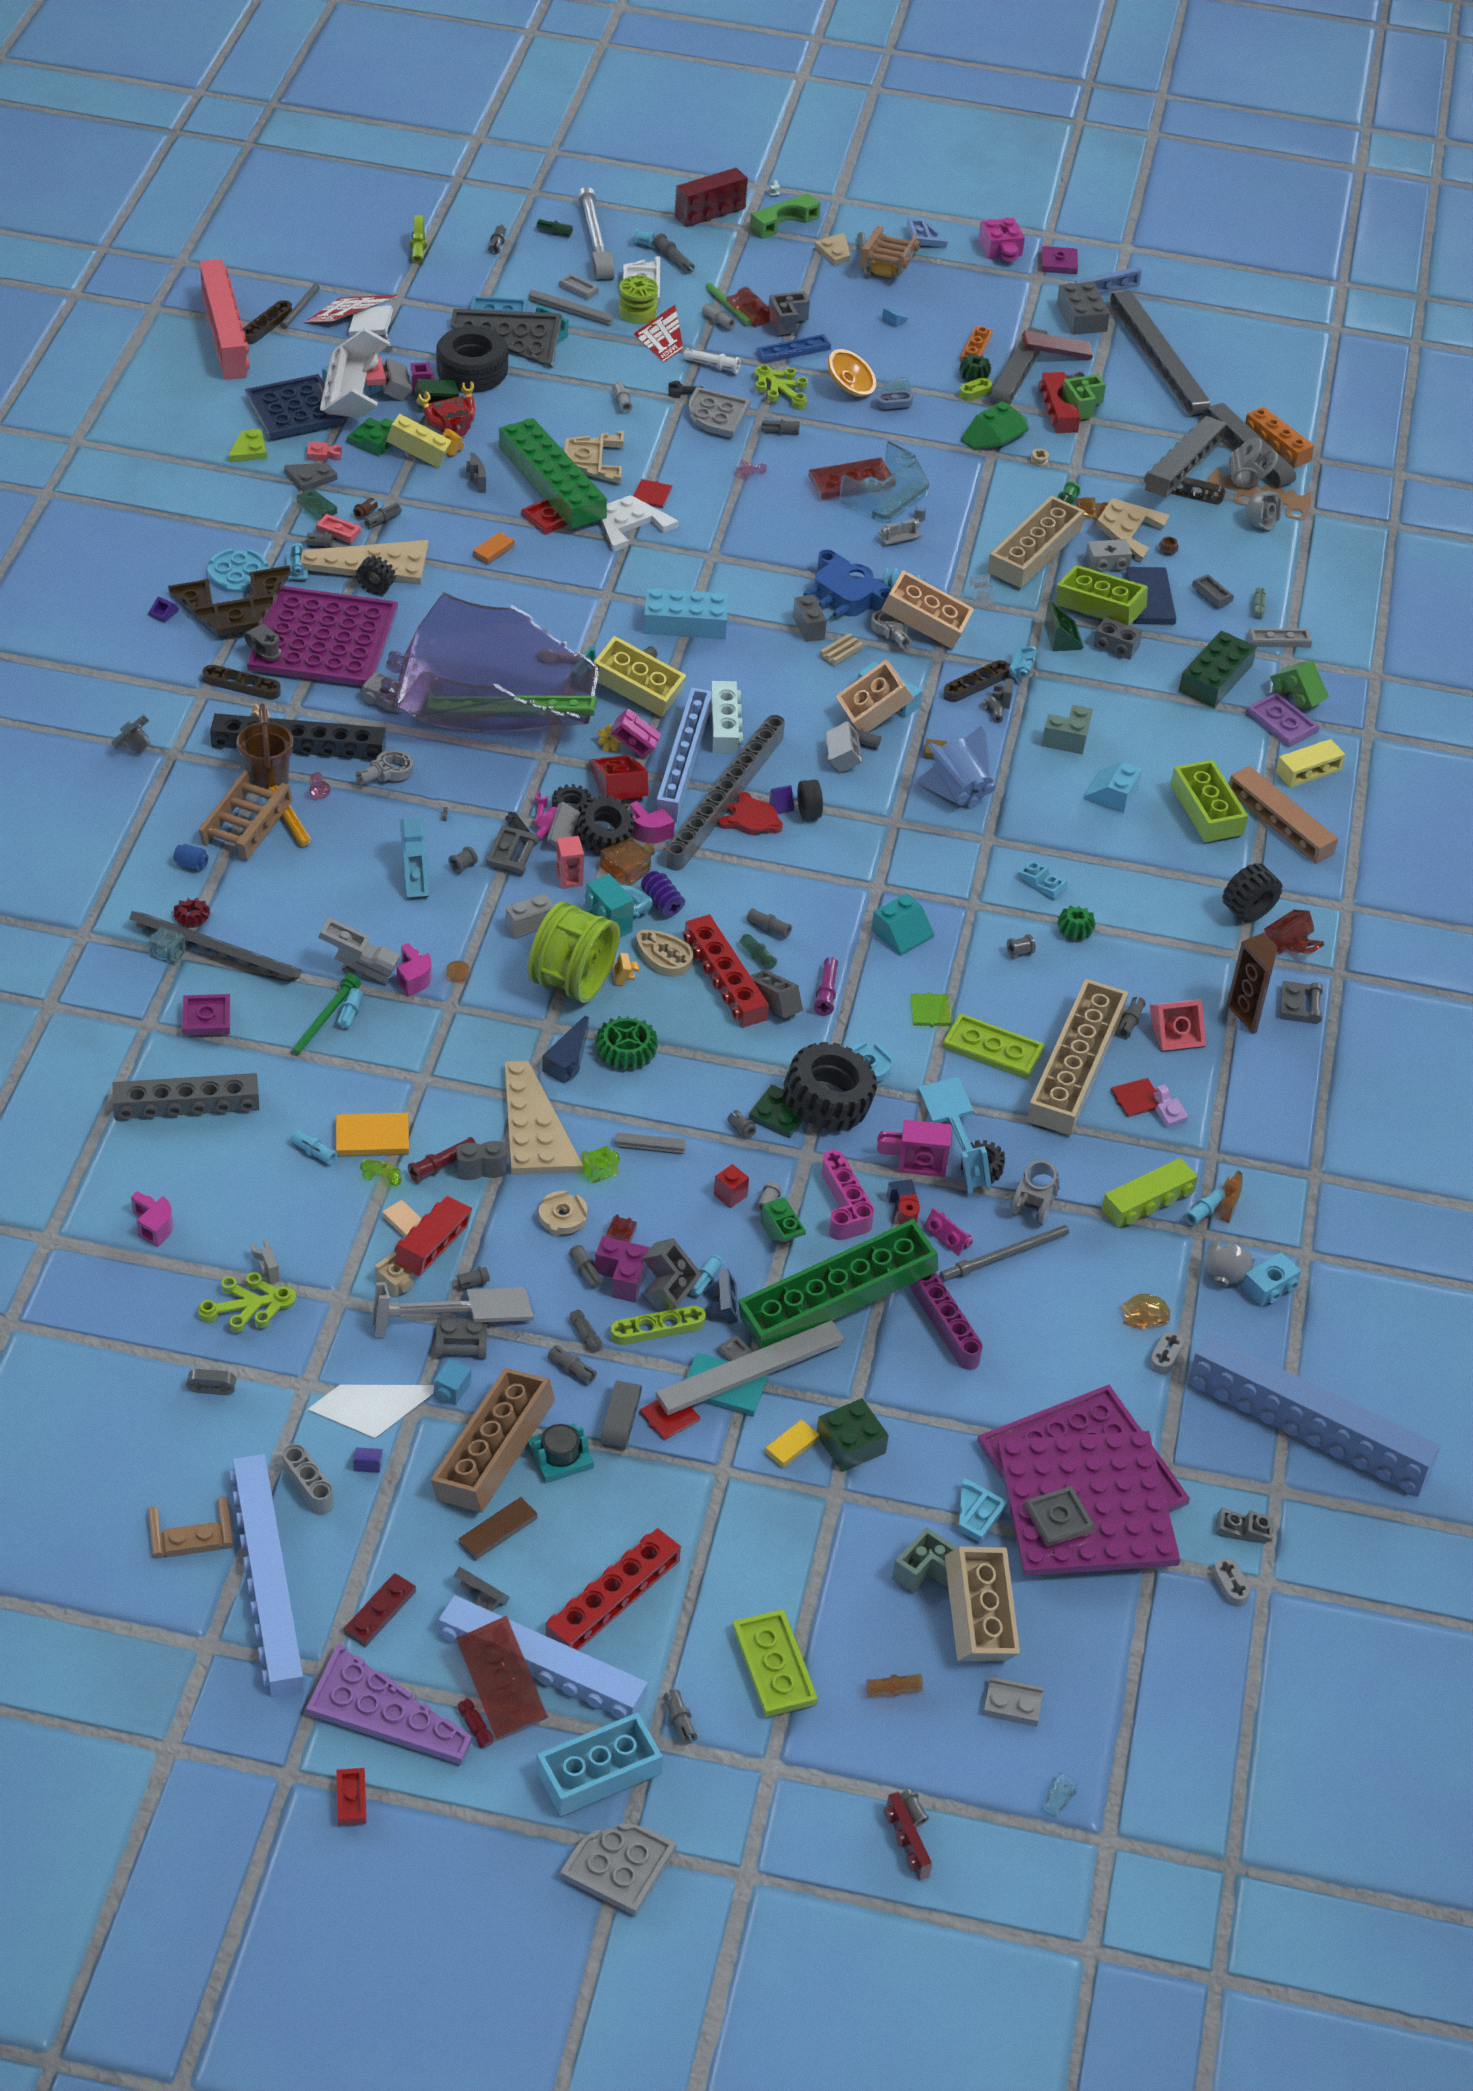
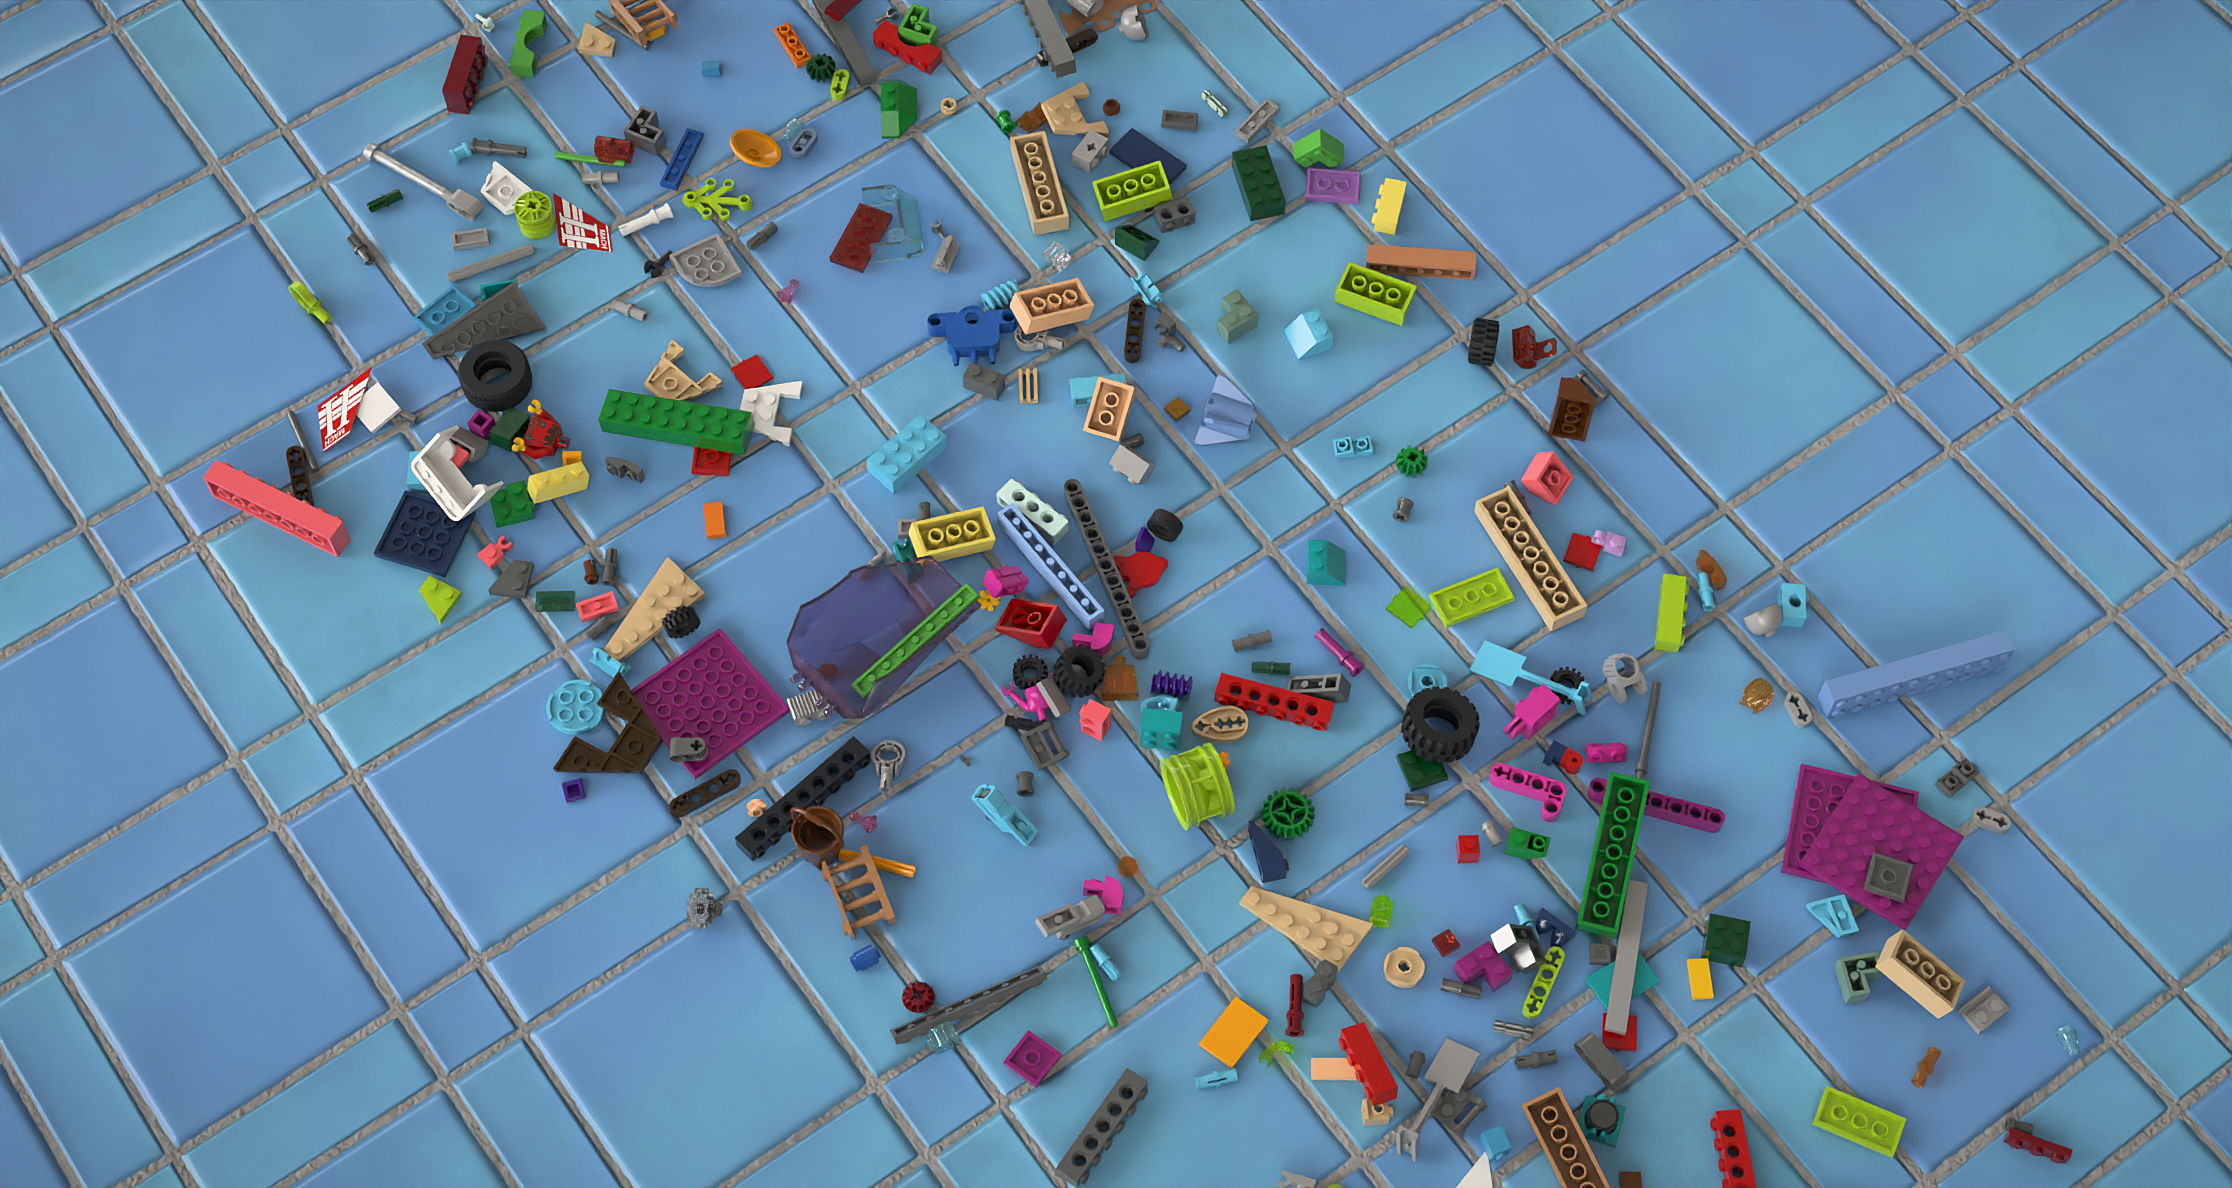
camera: 45 degrees left, 15 degrees up
(527, 915) = (1119, 783): light grey brick -> none

